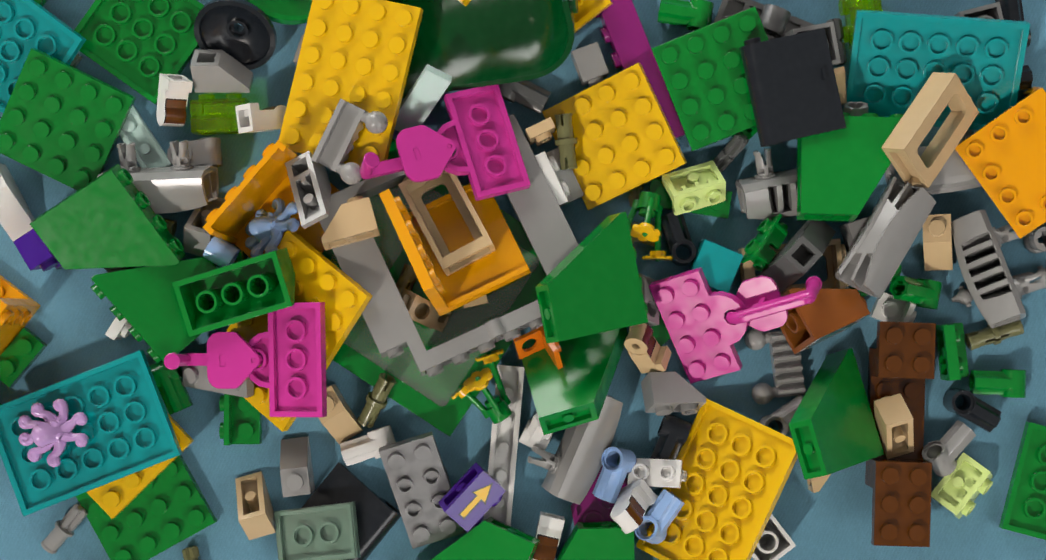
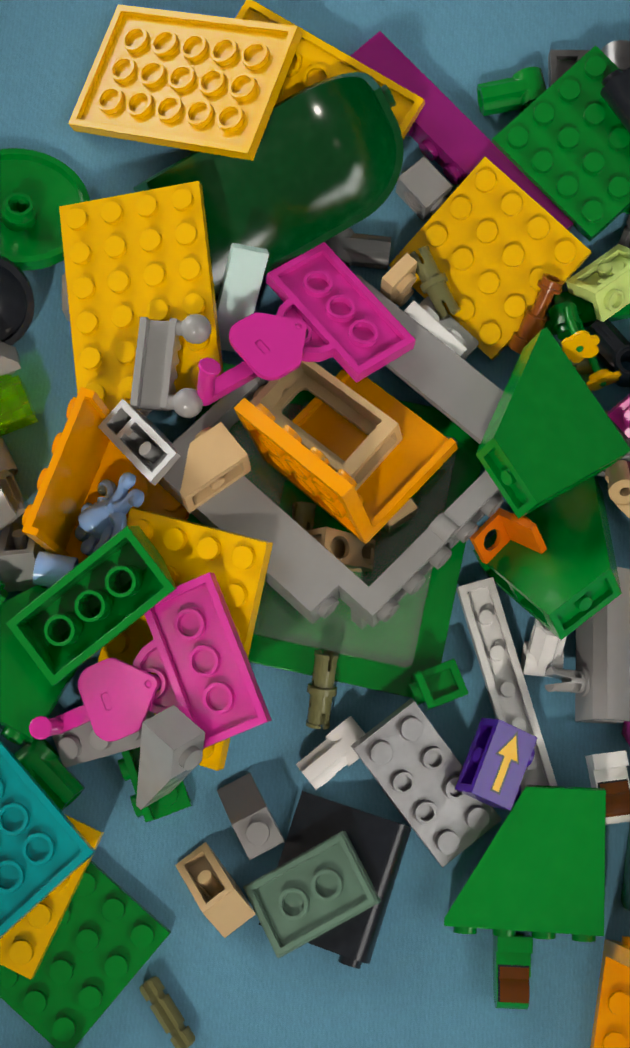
camera: 20 degrees left, 10 degrees down
(250, 410) = (168, 753): none -> light grey slope
(252, 119) = (44, 394): white leg -> none
(340, 419) = (284, 733): tan slope -> none
(455, 428) = (437, 685): none -> green bracket
(496, 406) = (479, 635): plant -> none
(628, 194) = (535, 319): none -> dark orange piece

